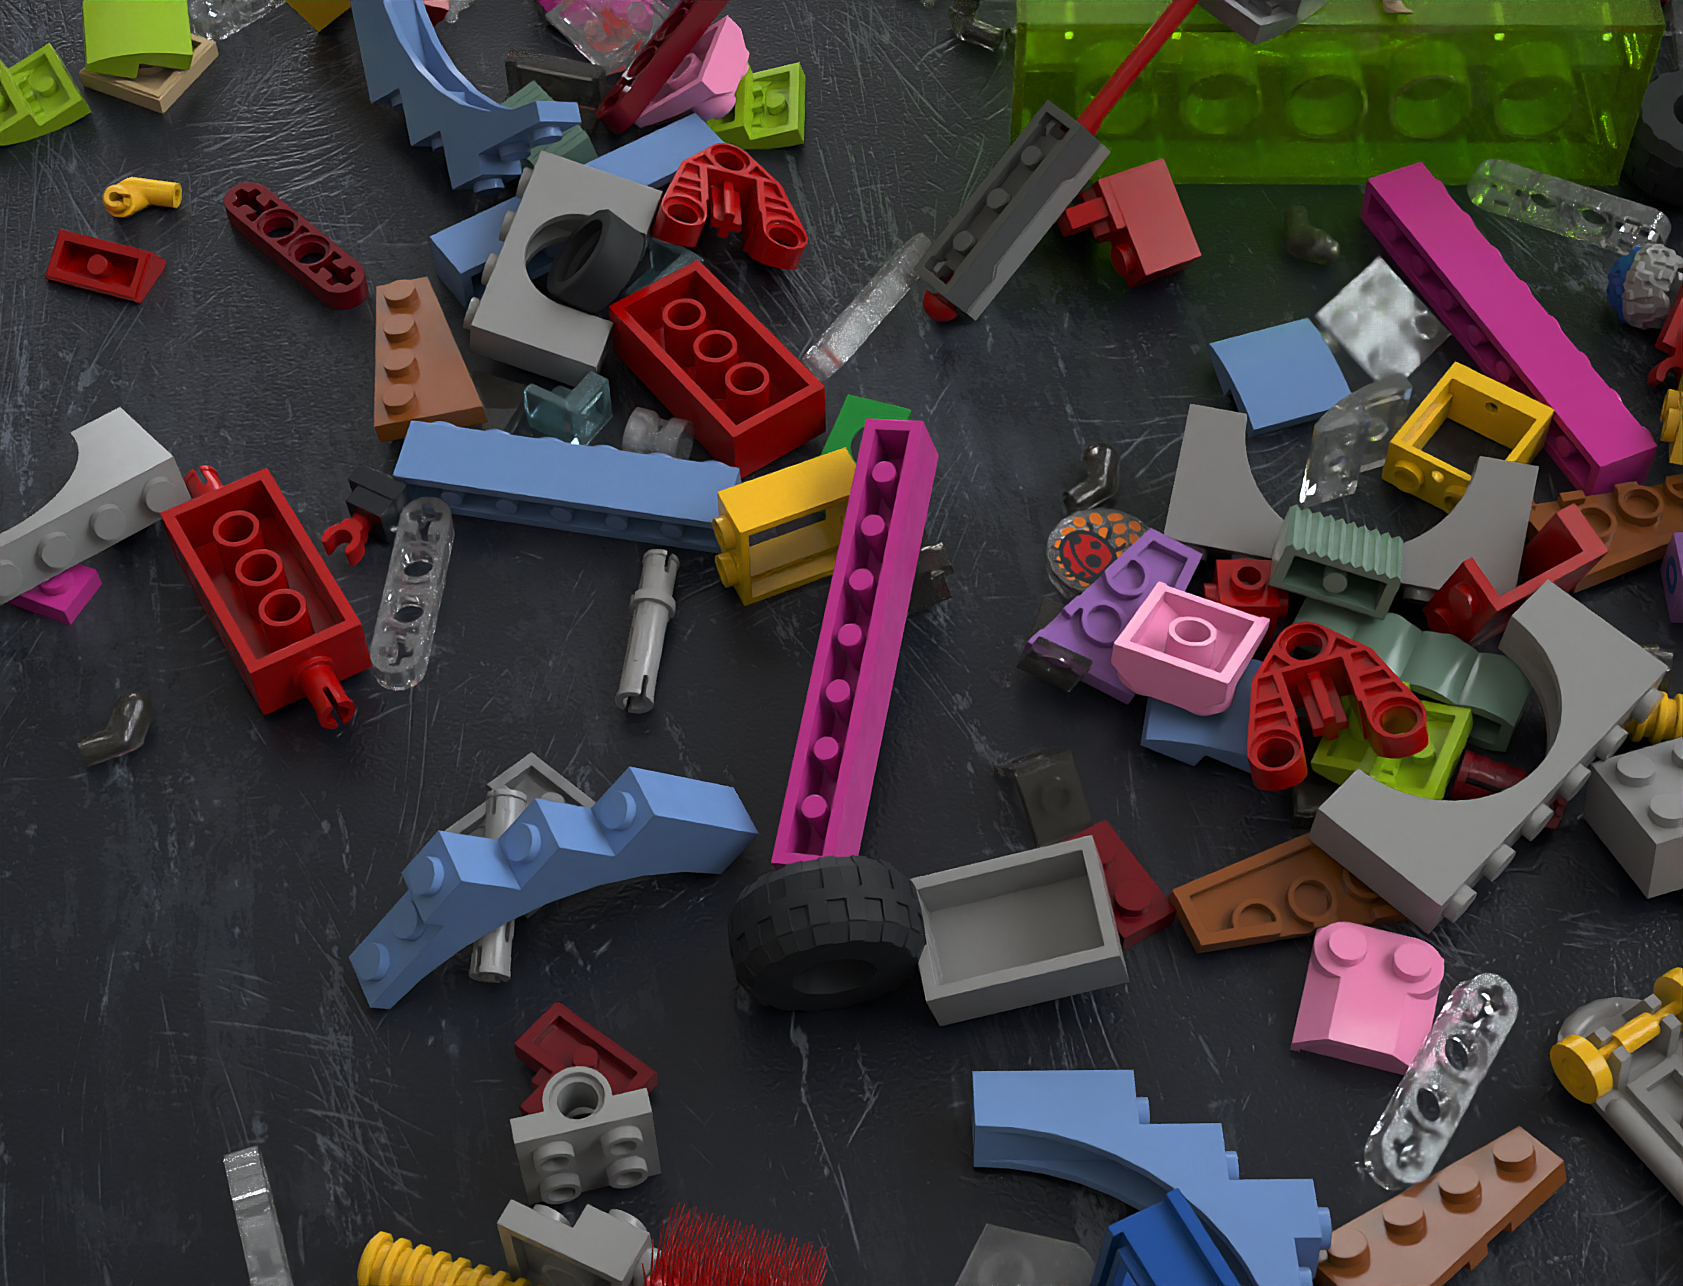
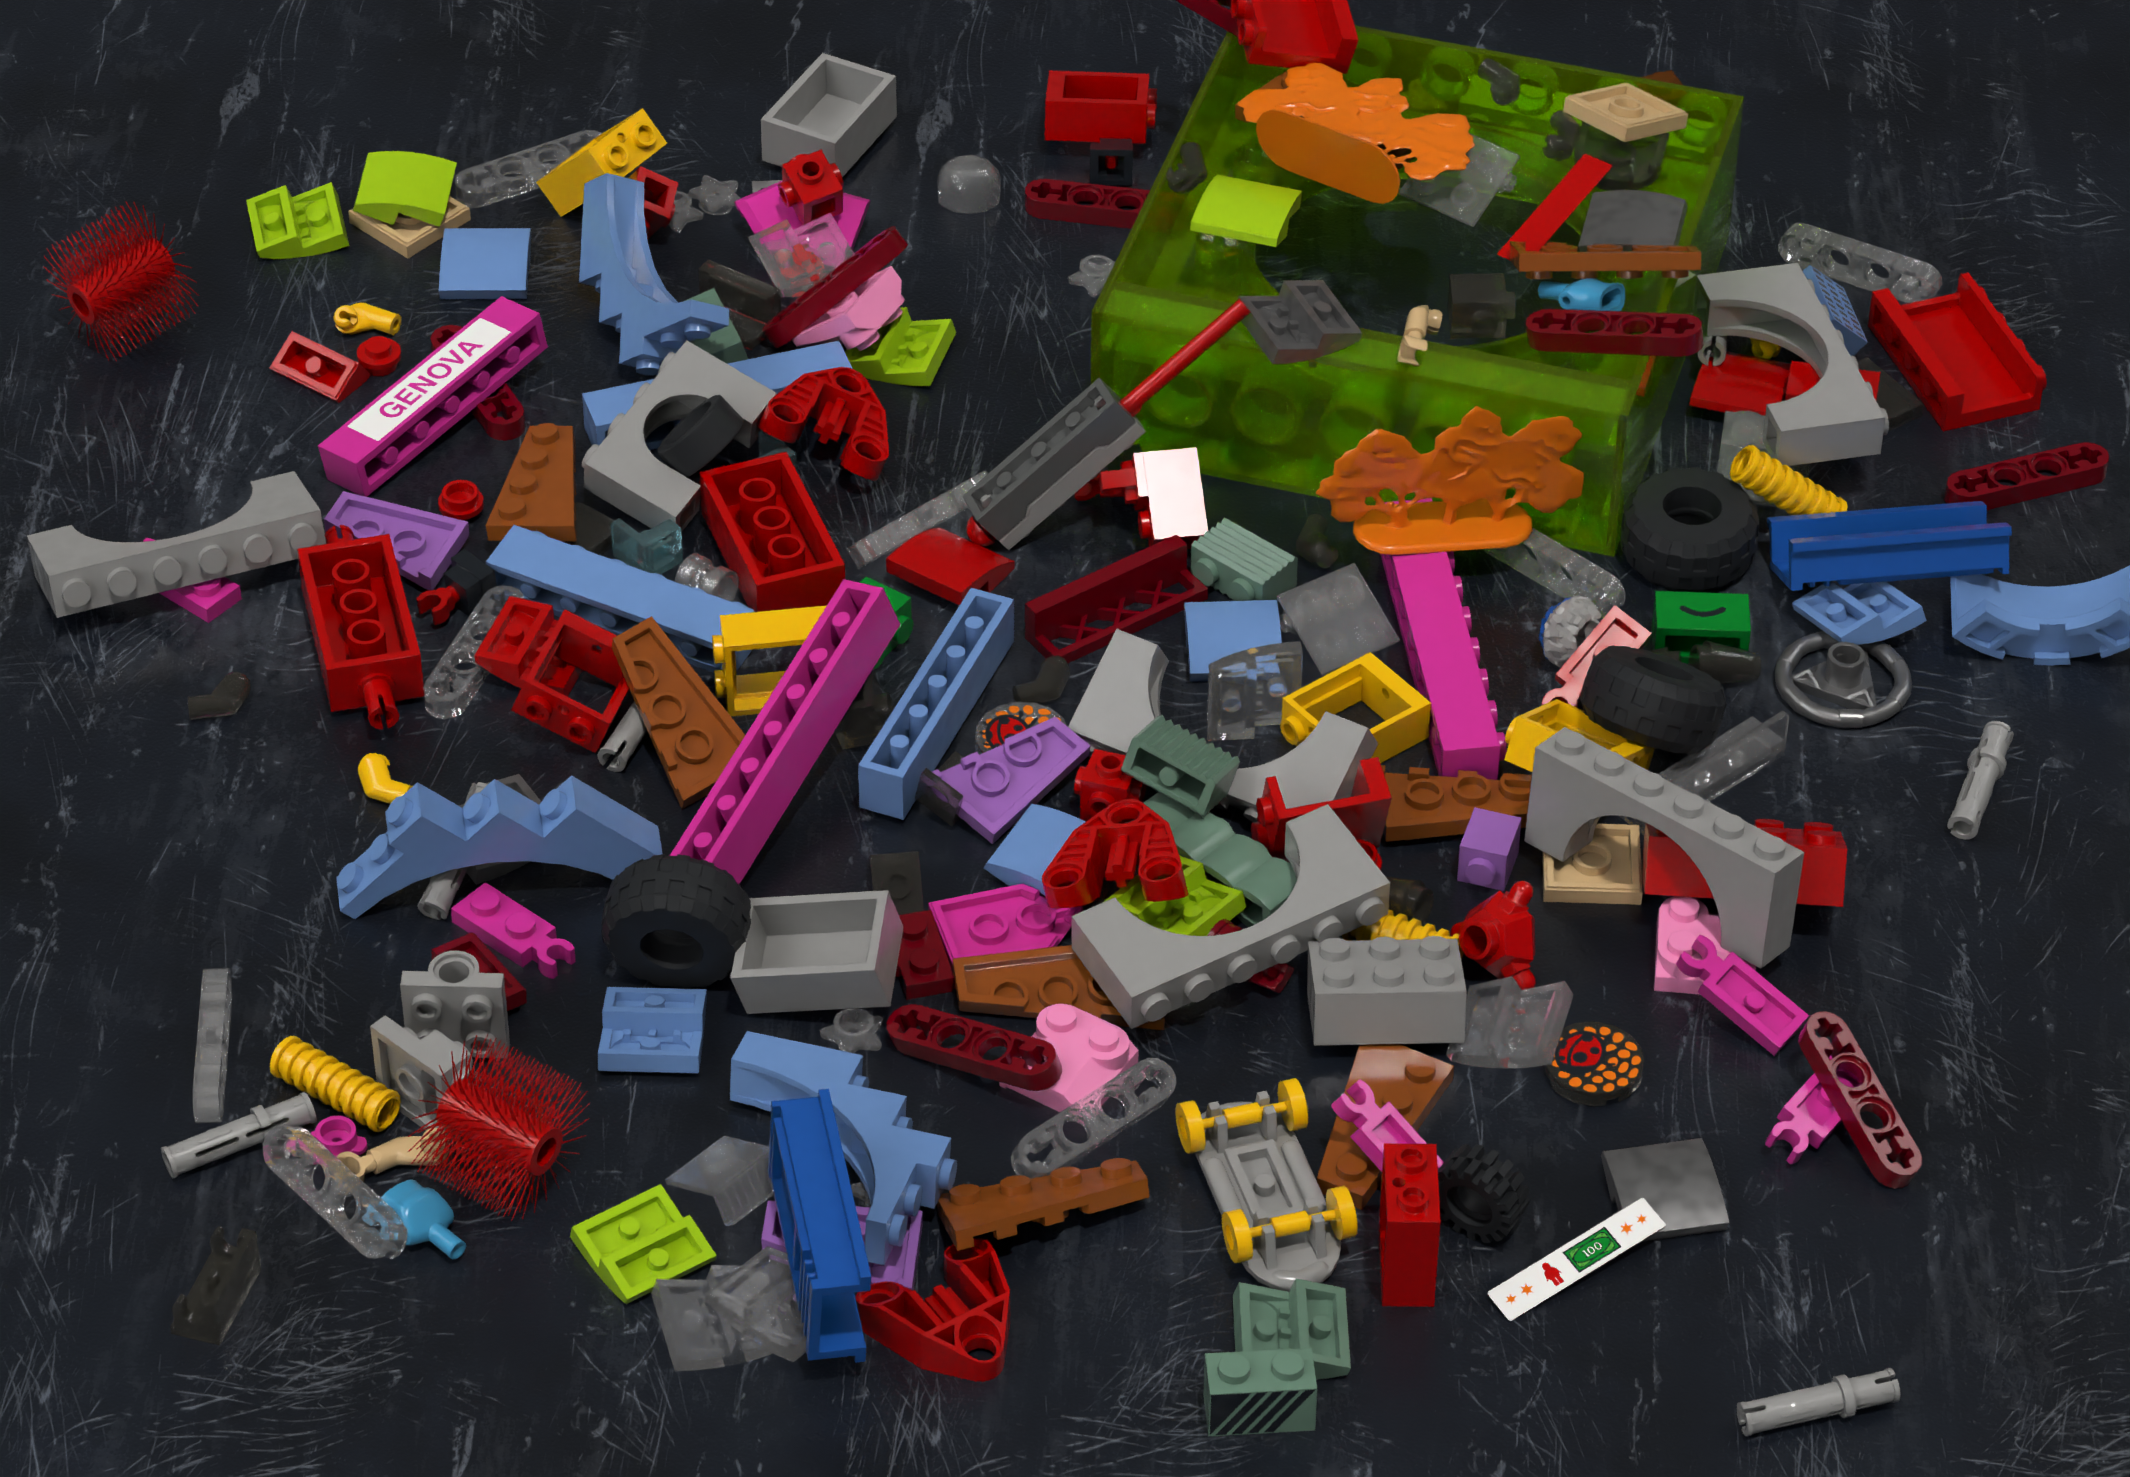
camera: 15 degrees right, 10 degrees down
(170, 236) = (379, 355): none -> red plate
(252, 278) = (432, 396): none -> dark pink brick
(255, 102) = (485, 263): none -> medium blue slope
(301, 457) = (419, 538): none -> medium lavender wing
(328, 397) = (460, 500): none -> red plate
(357, 805) = (377, 780): none -> yellow arm
(488, 573) = (516, 643): none -> red slope
(598, 572) = (573, 642): none -> red window
(599, 977) = (512, 930): none -> dark pink plate
(709, 631) = (680, 712): none -> dark orange wing
(834, 1085) = (652, 1030): none -> medium blue slope
(923, 356) = (948, 564): none -> red slope
(996, 543) = (936, 703): none -> medium blue brick
(1083, 1035) = (854, 1020): none -> clear plate
(1117, 347) = (1106, 594): none -> dark red fence
(1187, 650) = (1037, 803): bright pink slope -> none
(1192, 820) = (999, 922): none -> dark pink tile
(1248, 283) = (1242, 563): none -> sand green brick
(1256, 1002) = (970, 1052): none -> dark red beam
(1472, 149) = (1465, 470): none -> orange plant

